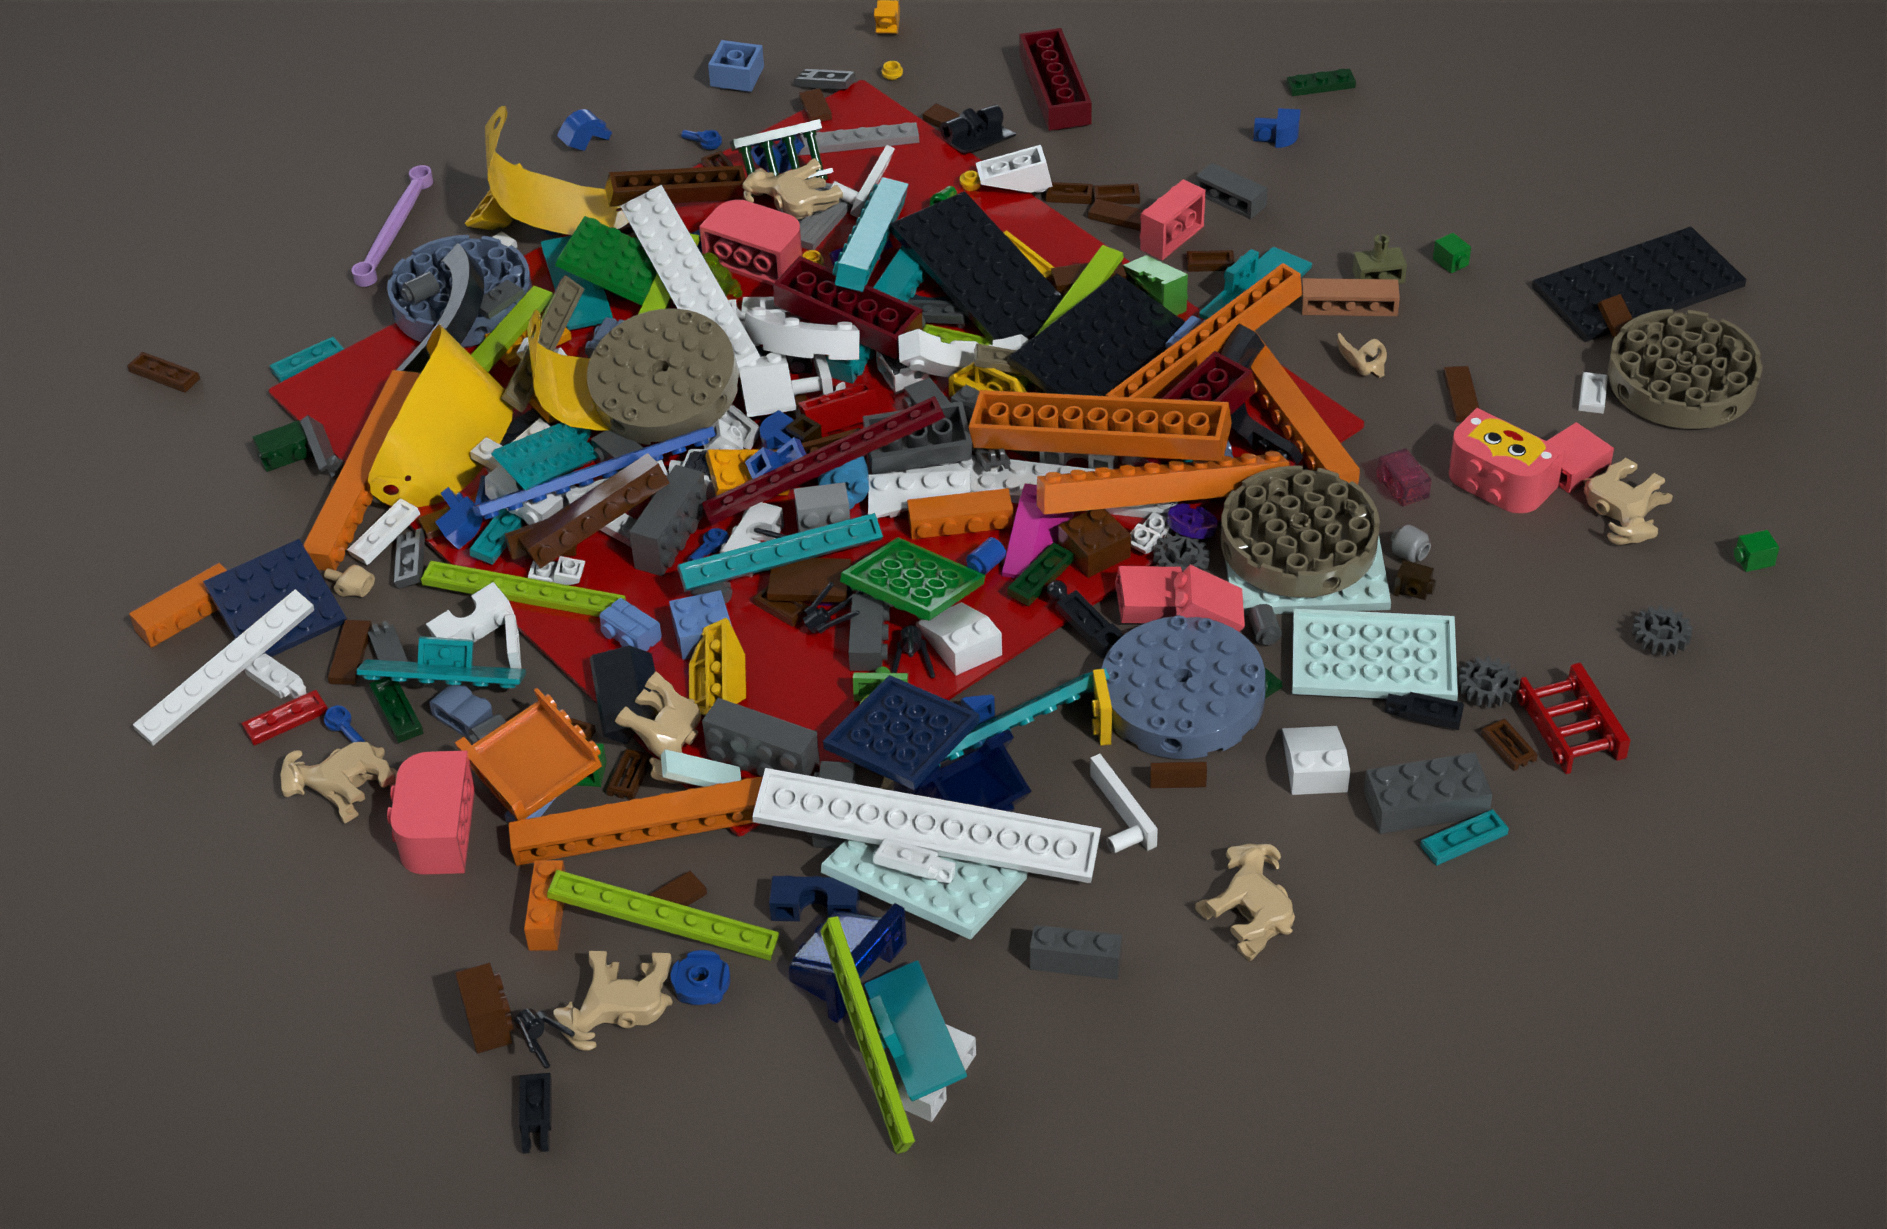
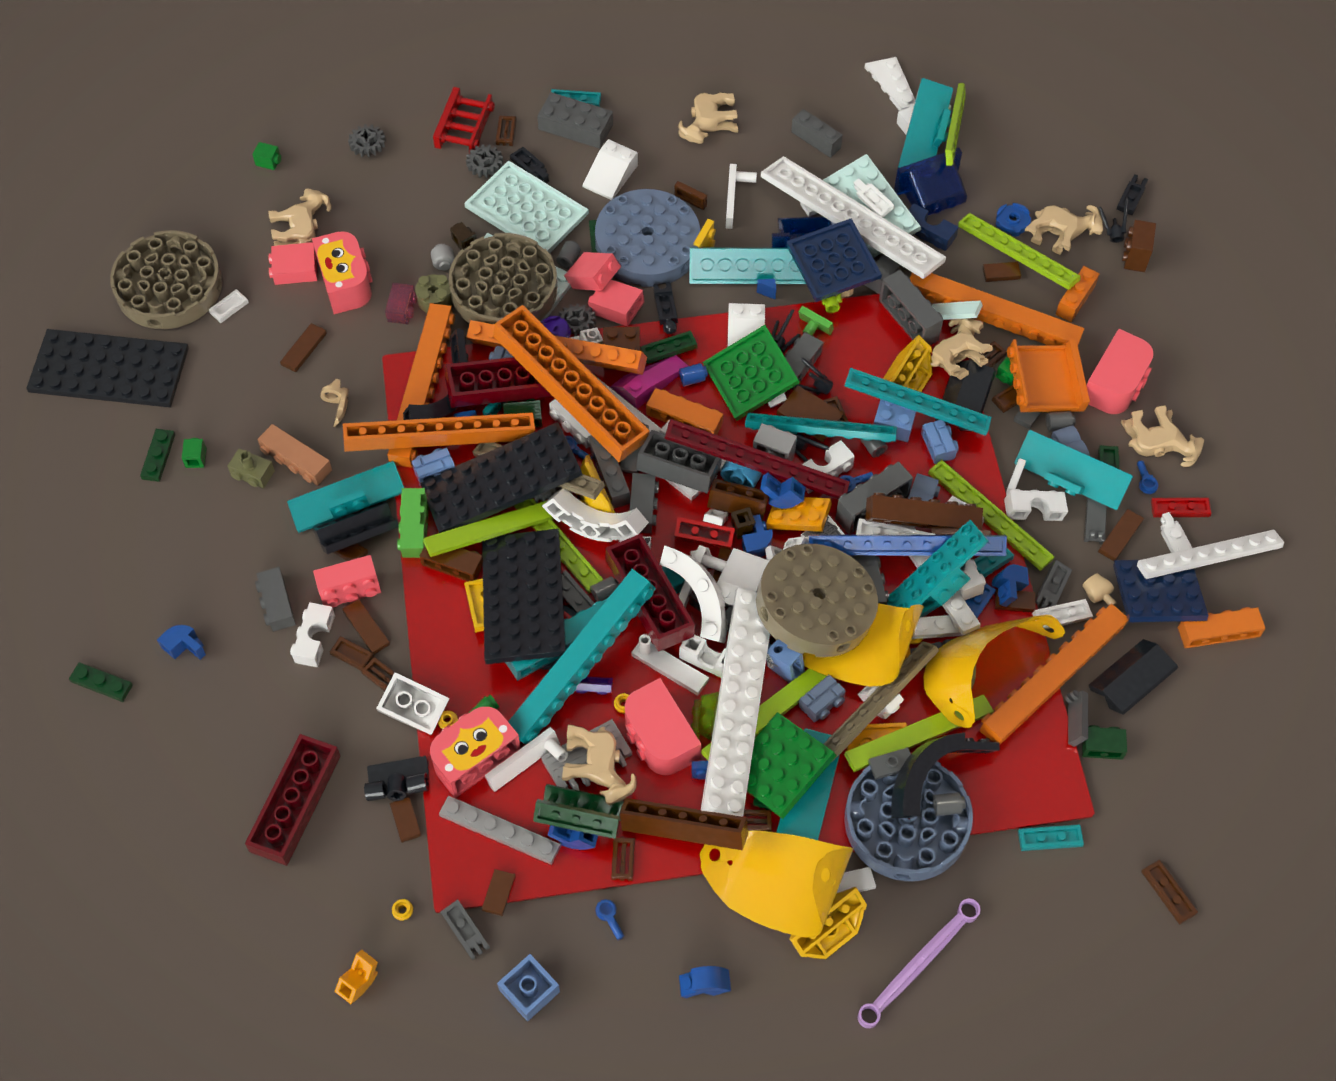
camera: 150 degrees left, 15 degrees up
(274, 514) = (1133, 676): none -> black slope
(616, 563) = (924, 487): none -> sand blue brick
(675, 619) = (918, 401): none -> teal plate
(836, 417) = (716, 517): none -> white tile
(923, 155) = (472, 748): none -> coral brick
(1031, 1118) = (893, 81): none -> white wing
(1159, 173) = (315, 619): none -> white arch
(1210, 262) = (355, 527): none -> black slope
(1385, 494) = (433, 290): none -> olive brick
(1489, 242) = (157, 455): none -> dark green plate
(1615, 313) = (159, 336): reddish brown tile -> none

